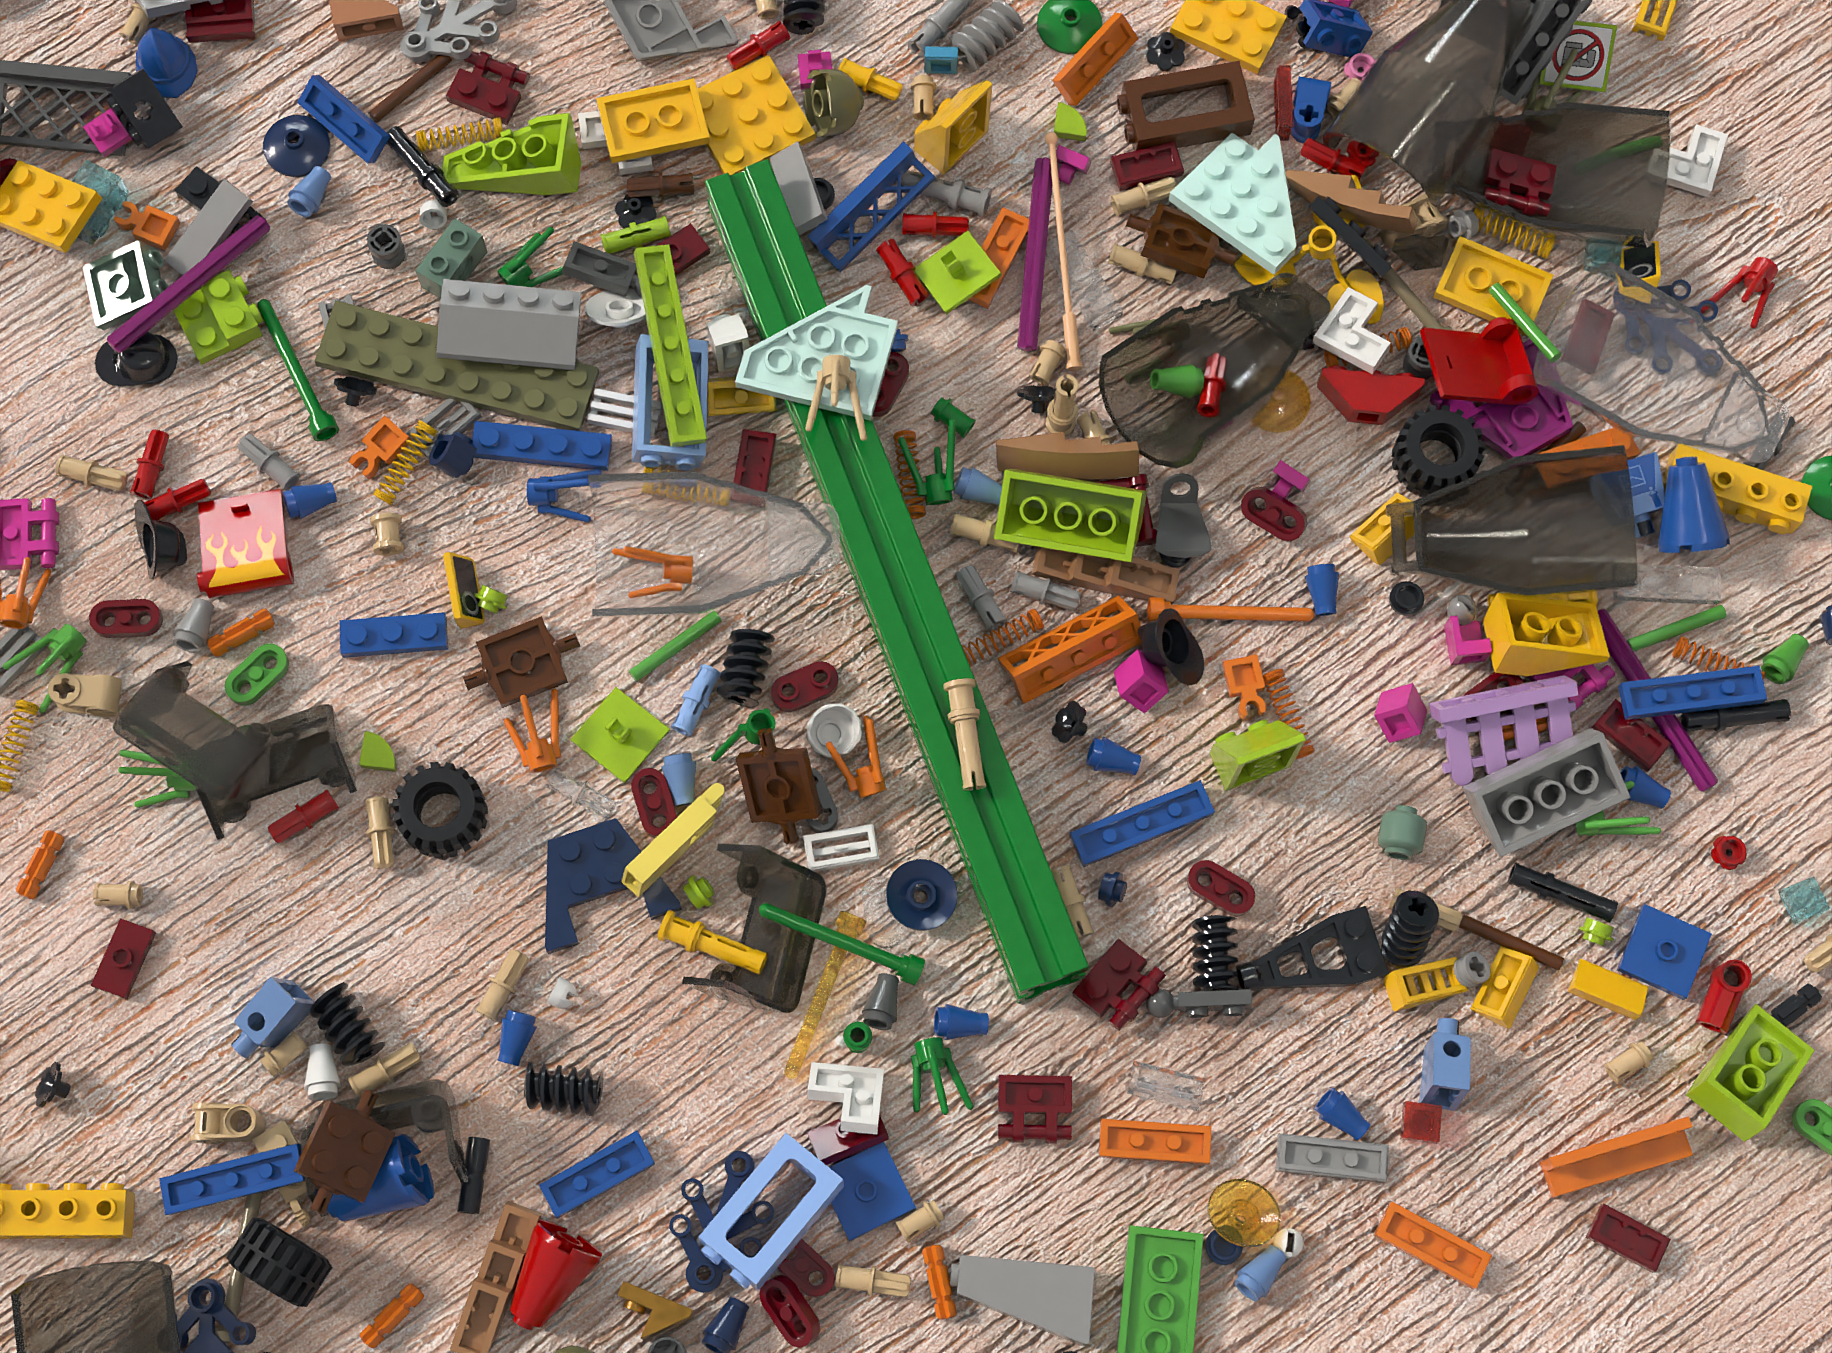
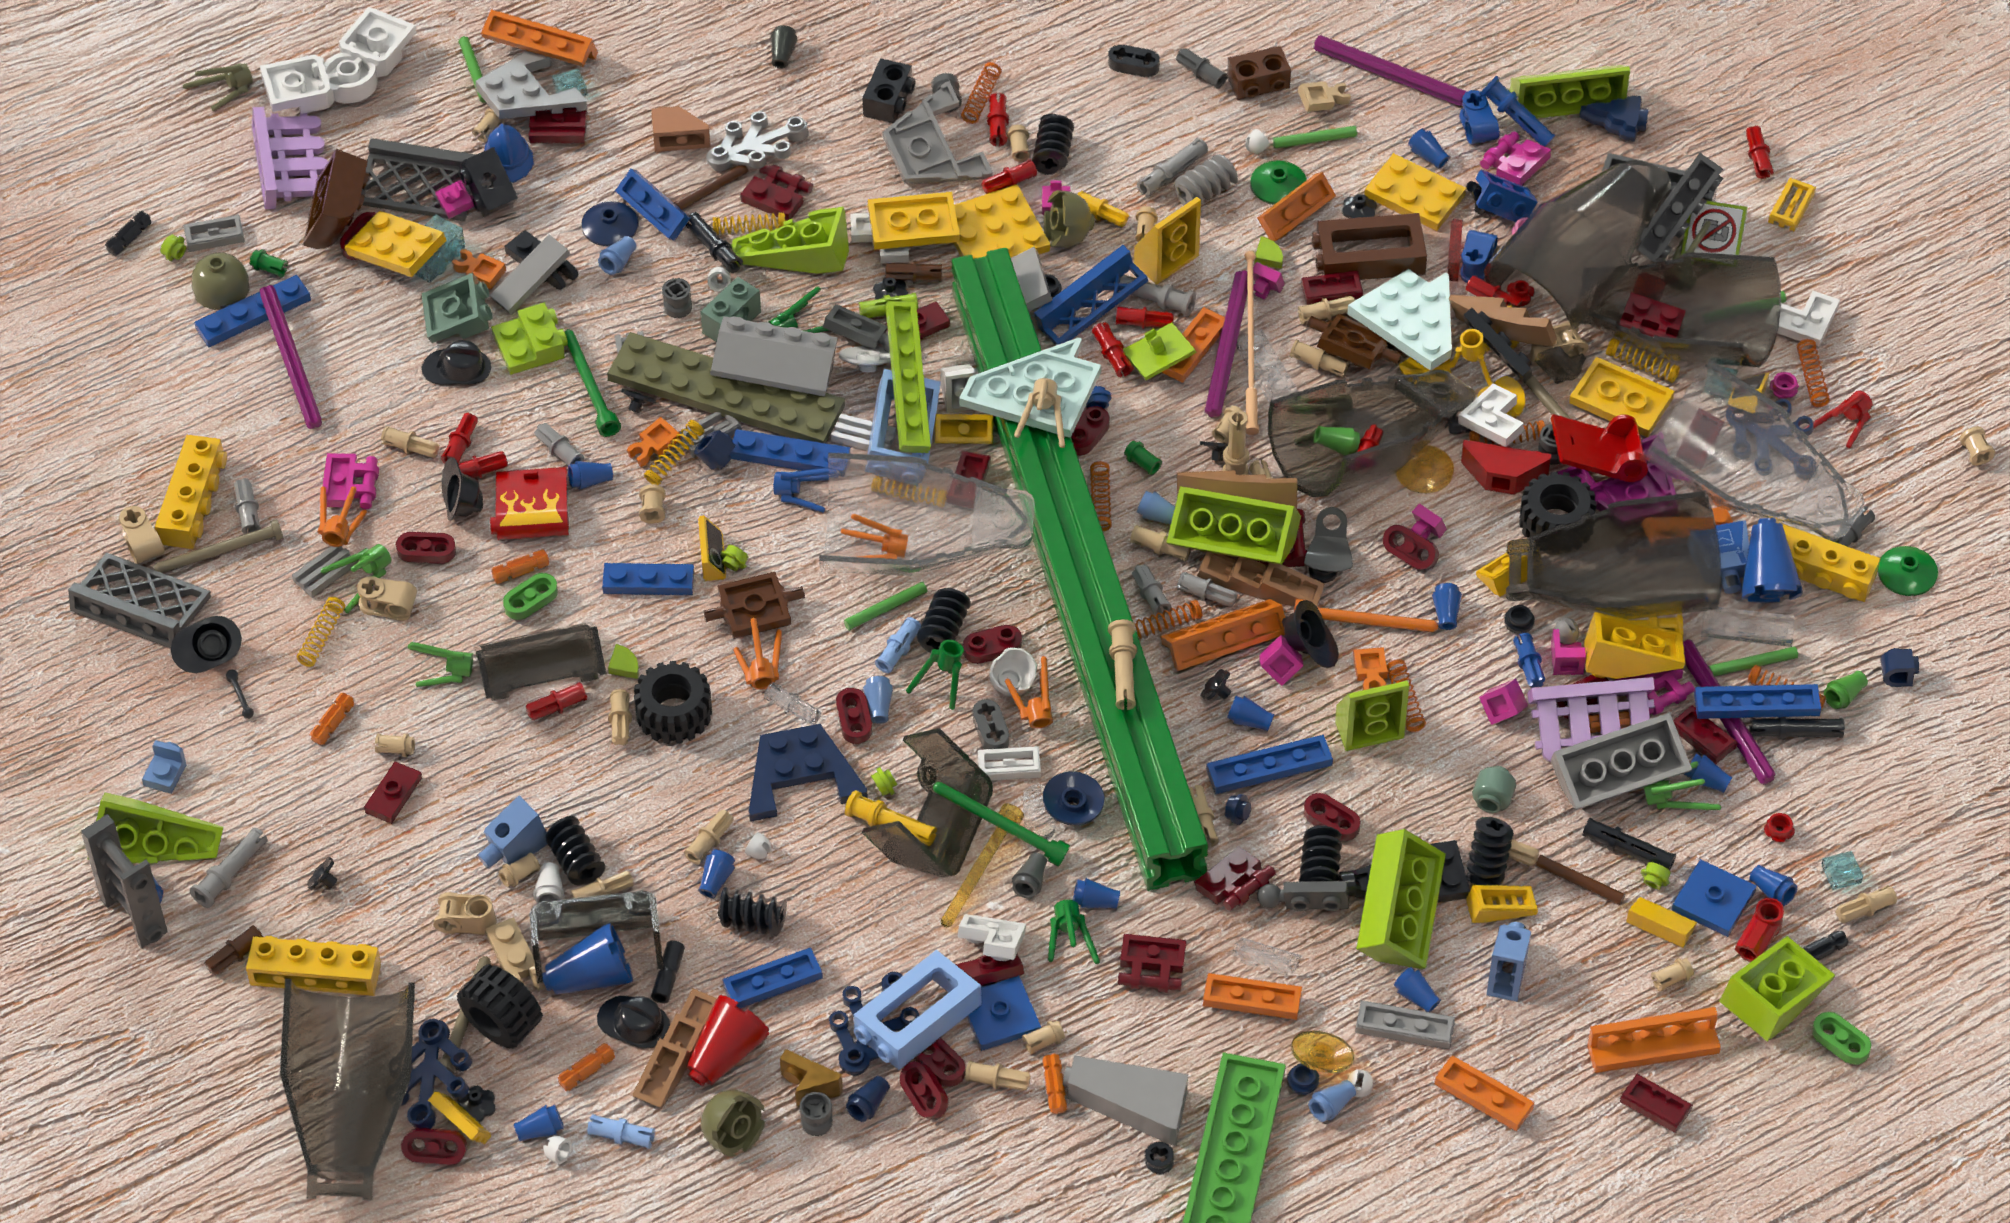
camera: 10 degrees right, 20 degrees down
(188, 284) = (509, 308): magenta axle -> none
(193, 629) = (481, 559): light grey cone -> none
(198, 741) = (488, 621): clear smoke windscreen -> none
(231, 1179) = (467, 950): blue plate -> none
(344, 1152) = (566, 918): reddish brown plate -> none
(440, 1244) = (633, 1020): none -> black piece
(620, 735) = (830, 667): lime piece -> none
(673, 841) = (866, 739): light yellow hinge -> none
(778, 785) = (961, 701): reddish brown plate -> none
(857, 1028) = (1006, 894): green pin -> none
(939, 485) = (1124, 502): green plant -> none
(940, 60) = (1164, 197): dark azure tile -> none
(1313, 1002) = (1401, 900): none -> lime slope
(1421, 1122) = (1485, 1002): clear red plate -> none
(1424, 654) = (1529, 660): none -> blue axle
(1463, 224) = (1600, 348): light grey plate -> none
(1474, 961) = (1542, 893): light grey bush -> none
(1506, 987) = (1573, 912): yellow slope -> none
(1525, 322) = (1642, 418): bright green bar -> none
(1676, 246) = (1785, 380): none -> dark pink plate
(1721, 264) = (1818, 394): none -> orange piece
(1730, 930) = (1774, 884): none -> blue cone

